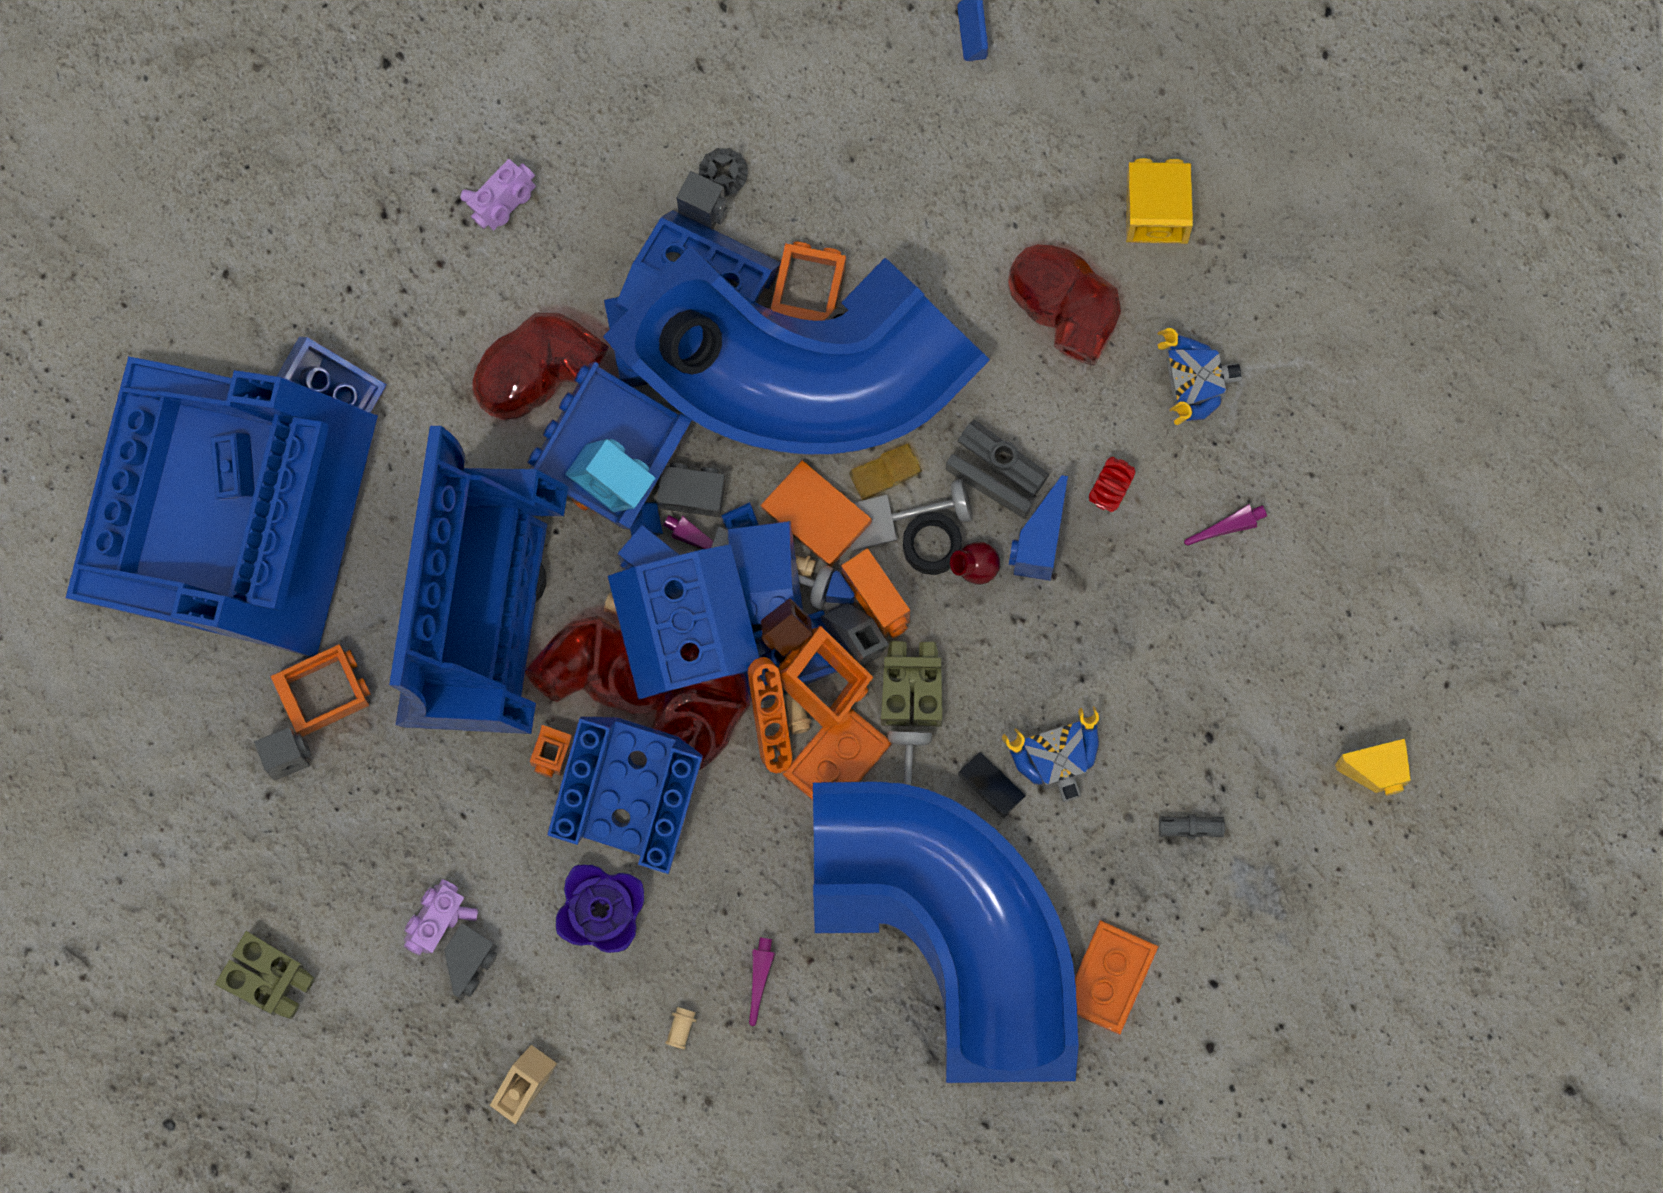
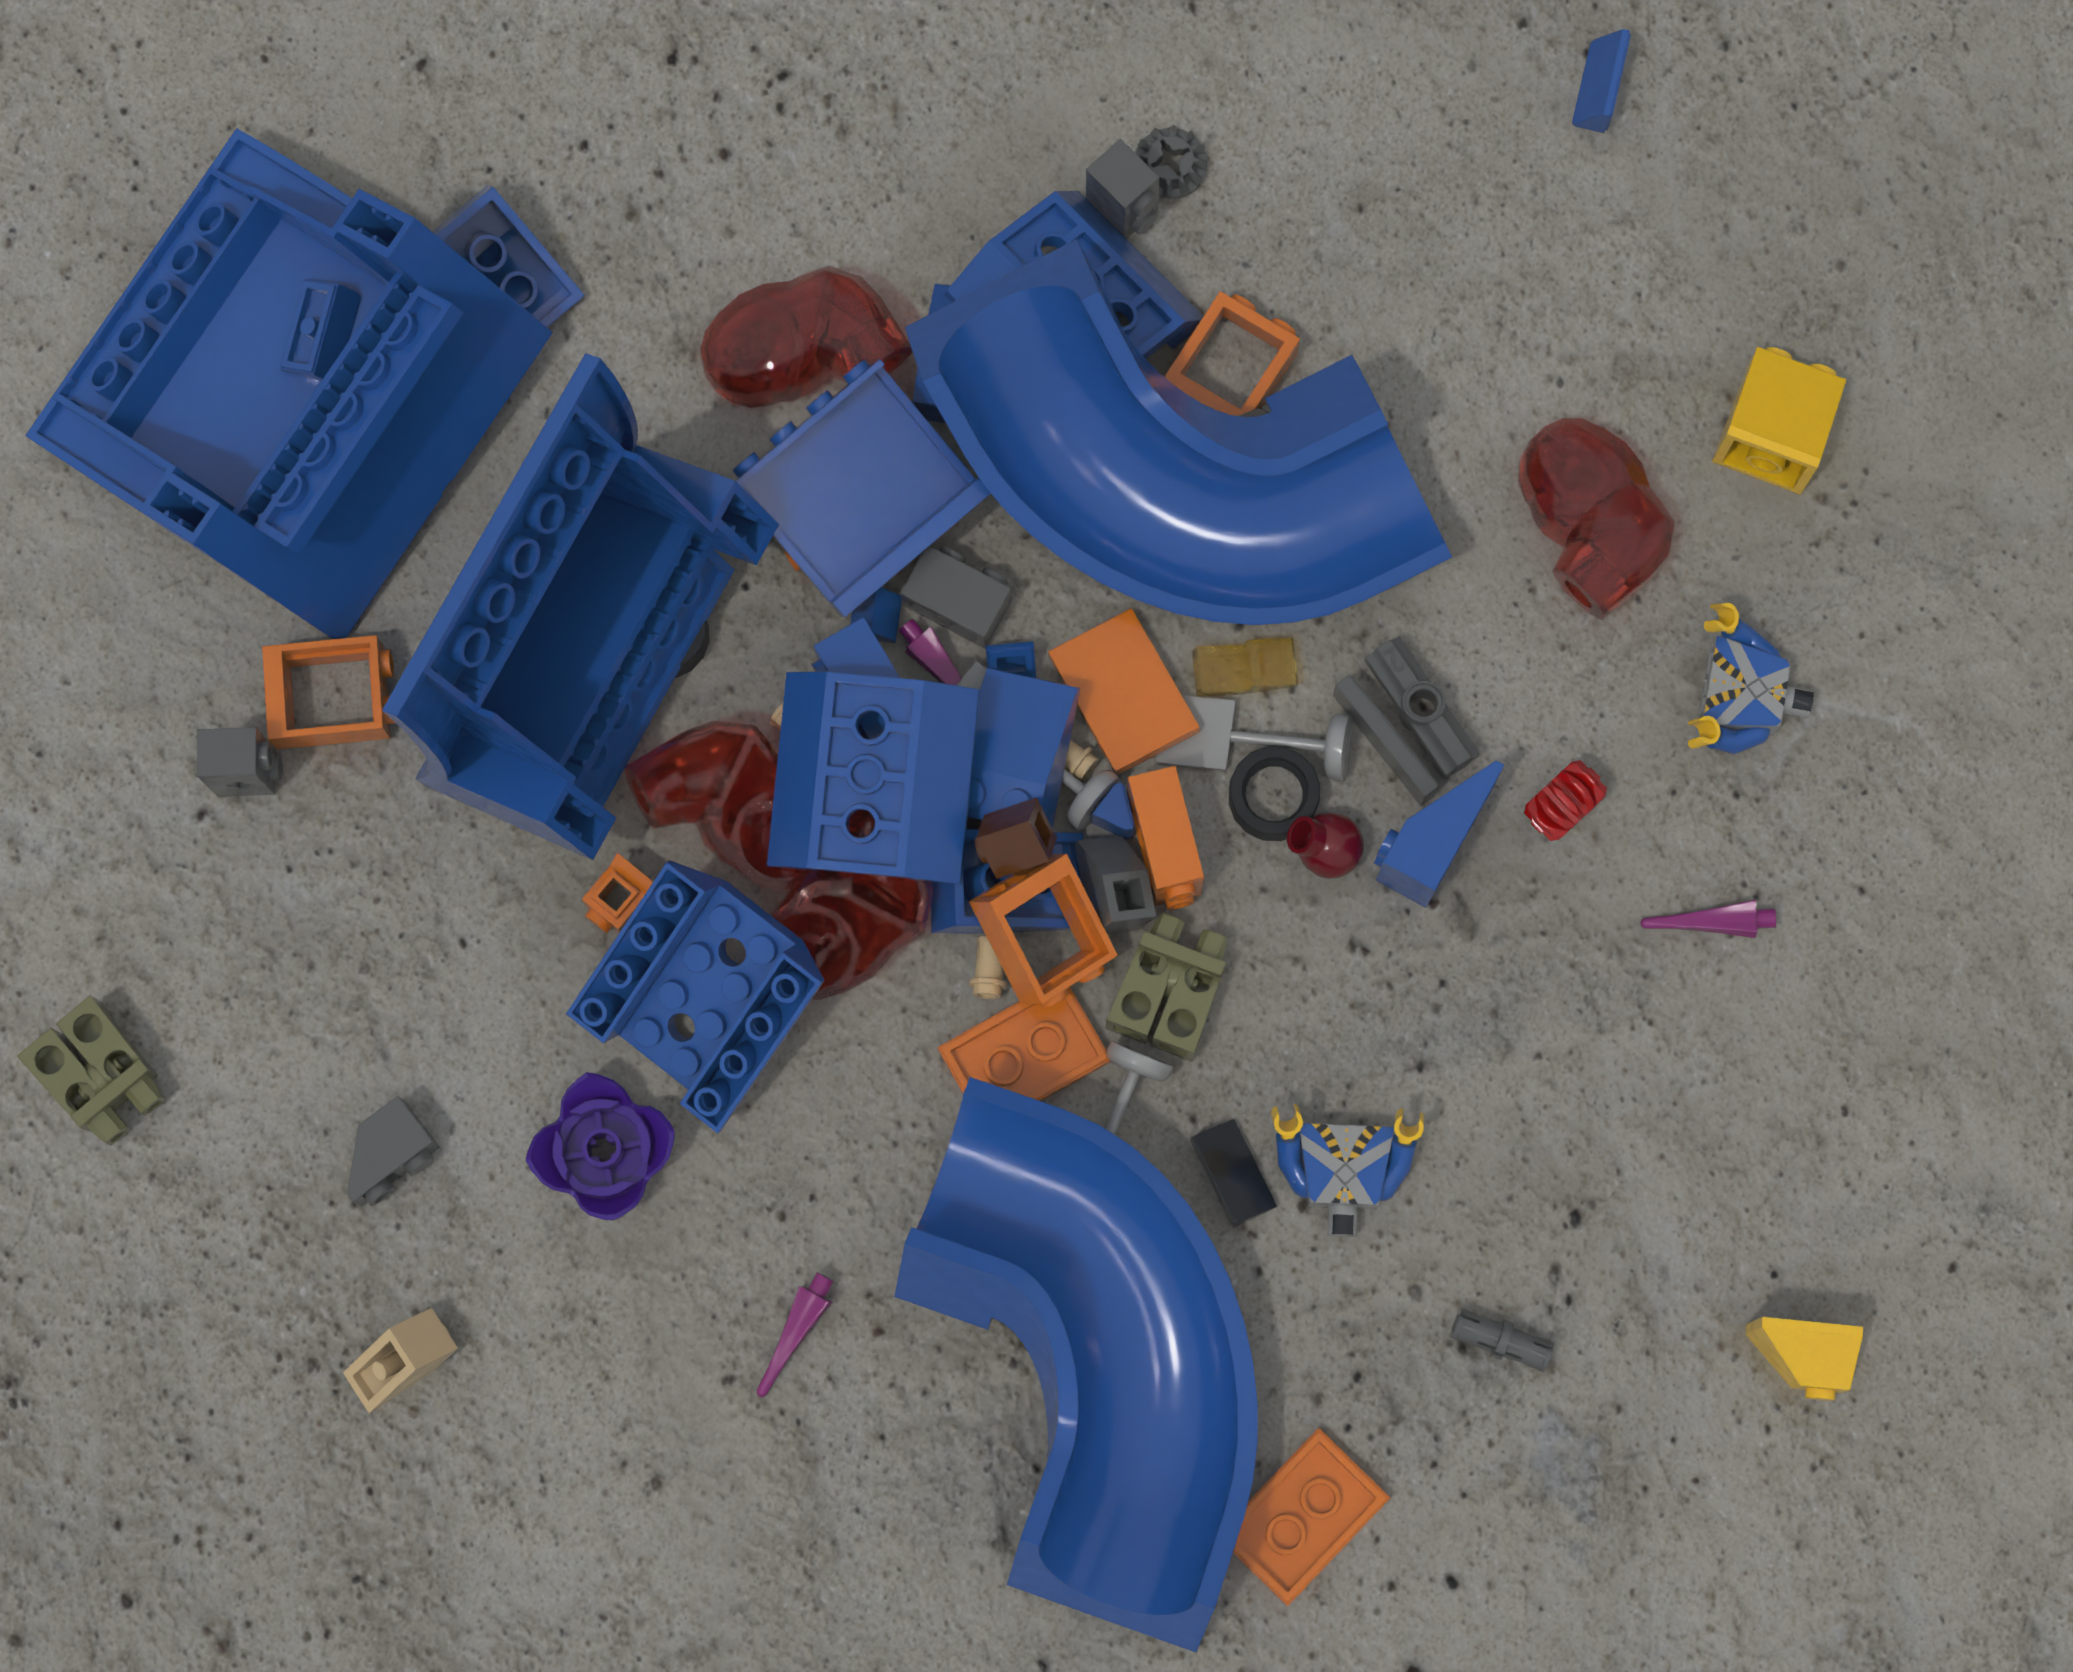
camera: 20 degrees right, 0 degrees up
(439, 911) = (374, 1068): lavender brick -> none
(500, 195) = (842, 85): lavender brick -> none
(611, 475) = (844, 529): medium azure brick -> none
(680, 1028) = (655, 1361): tan pin -> none
(706, 353) = (1043, 404): black tyre -> none
(767, 716) = (950, 957): orange beam -> none

